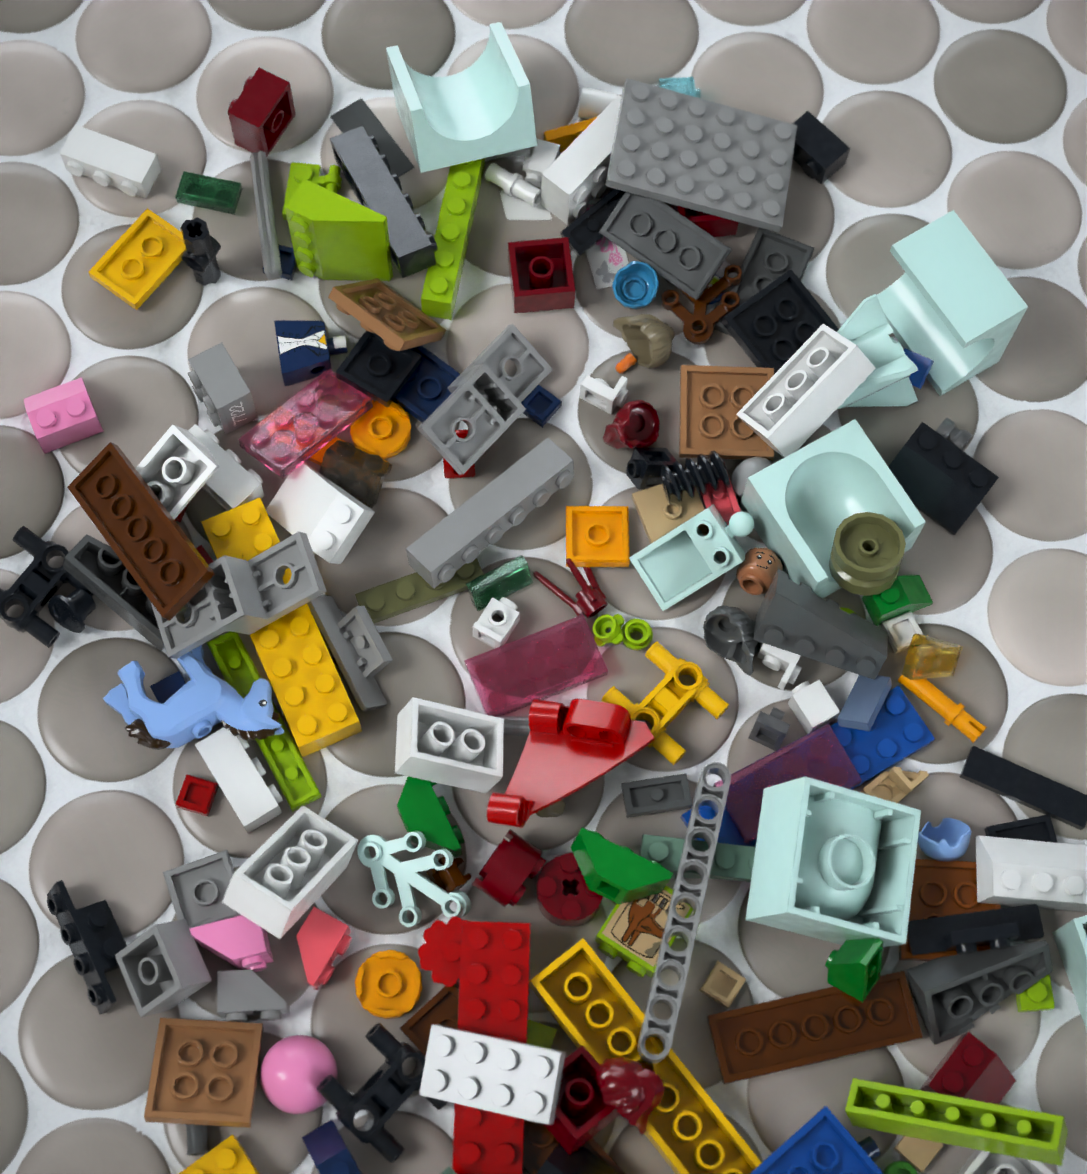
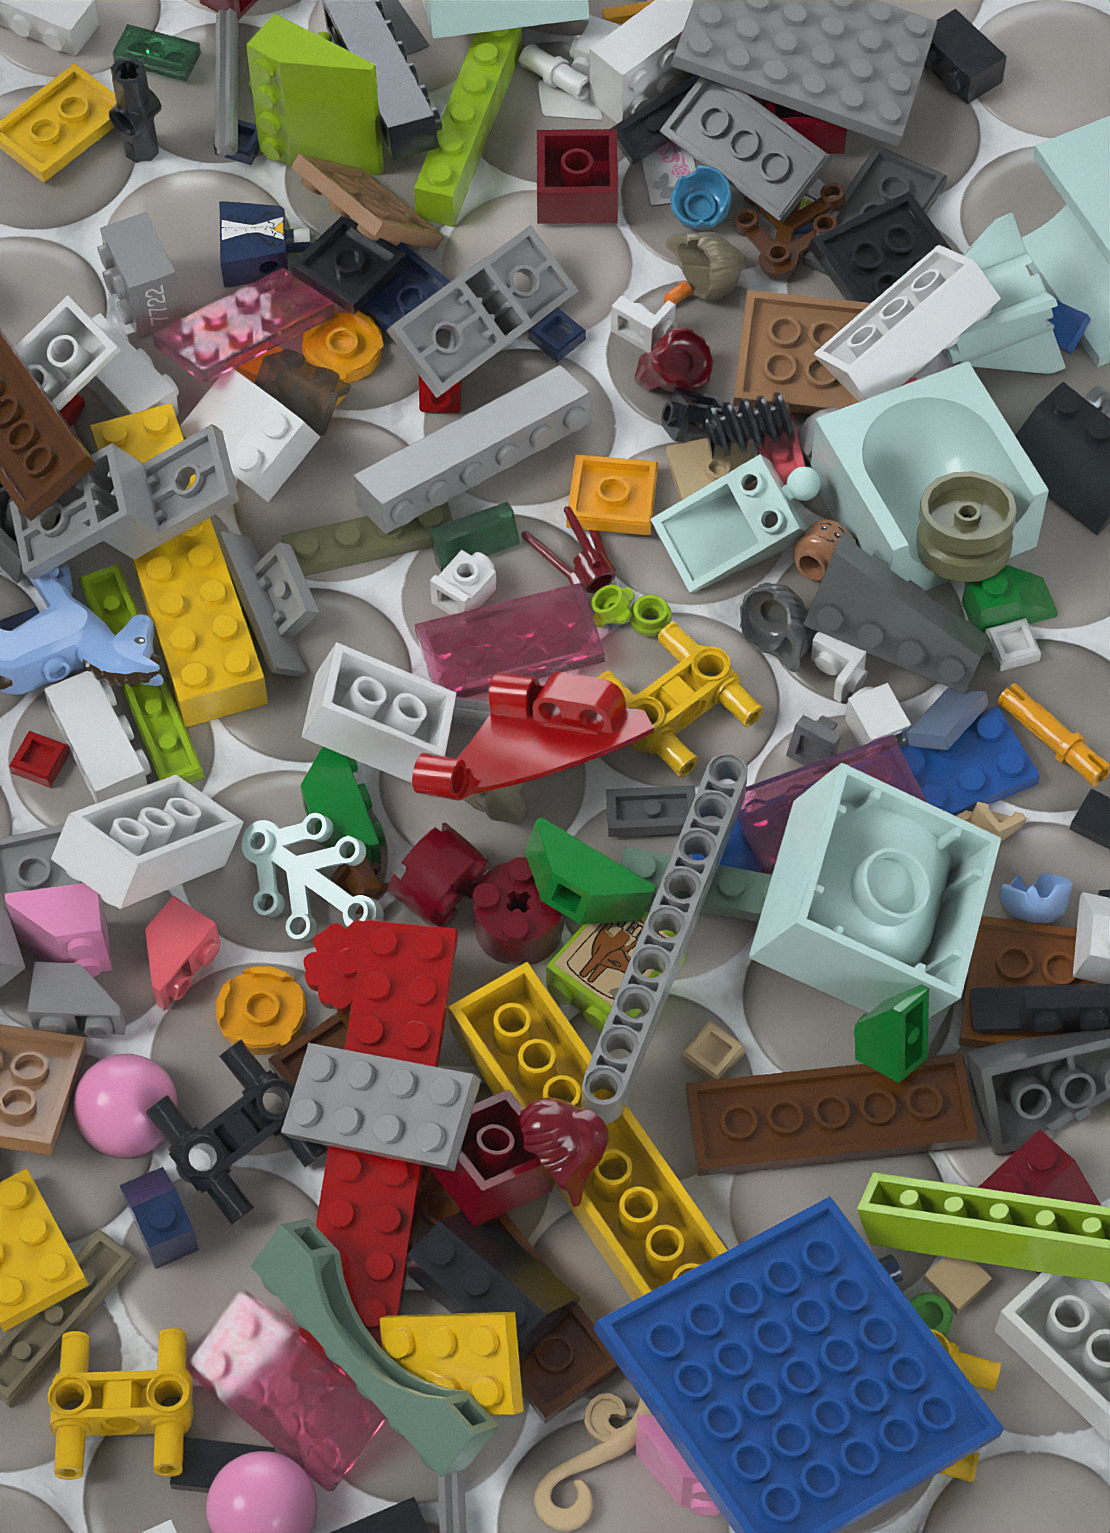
camera: 10 degrees right, 10 degrees down
(930, 658) = (1044, 673): clear yellow slope -> none

